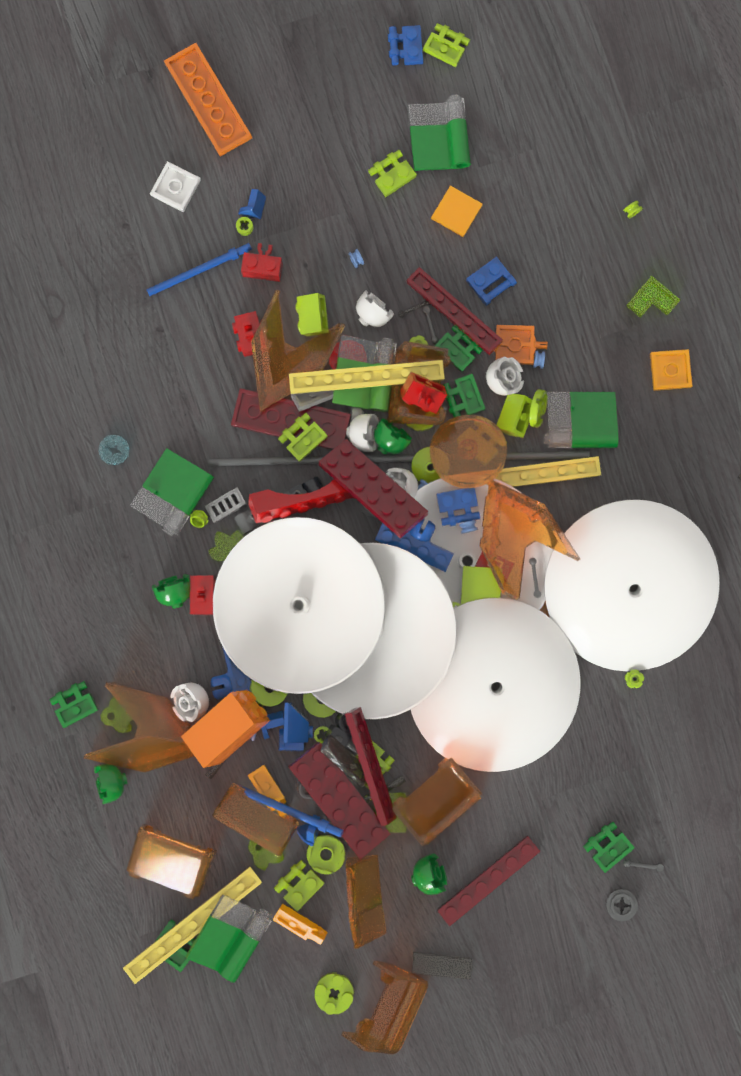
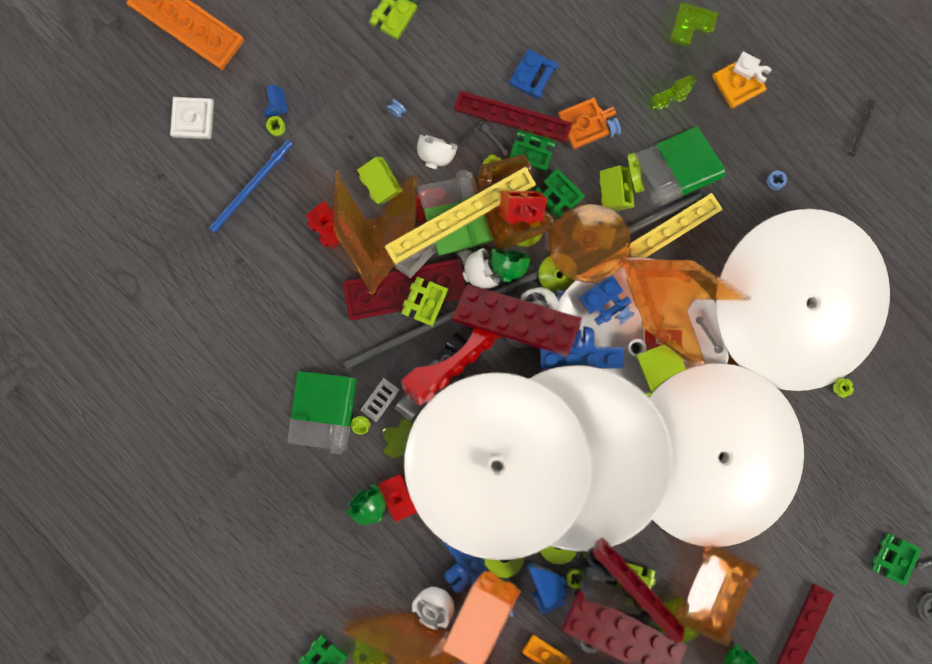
camera: 30 degrees left, 0 degrees up
(111, 441) = (242, 388): clear light blue gear -> none
(262, 266) = (310, 155): red brick -> none
(276, 719) = (525, 585): blue tile -> none
(456, 211) = (470, 23): light orange tile -> none
(504, 376) = (589, 157): white cylinder -> none
(610, 353) = (677, 92): none -> clear neon green plate
(661, 477) = (775, 174): none -> medium blue bush
(684, 359) = (749, 66): none -> white plate

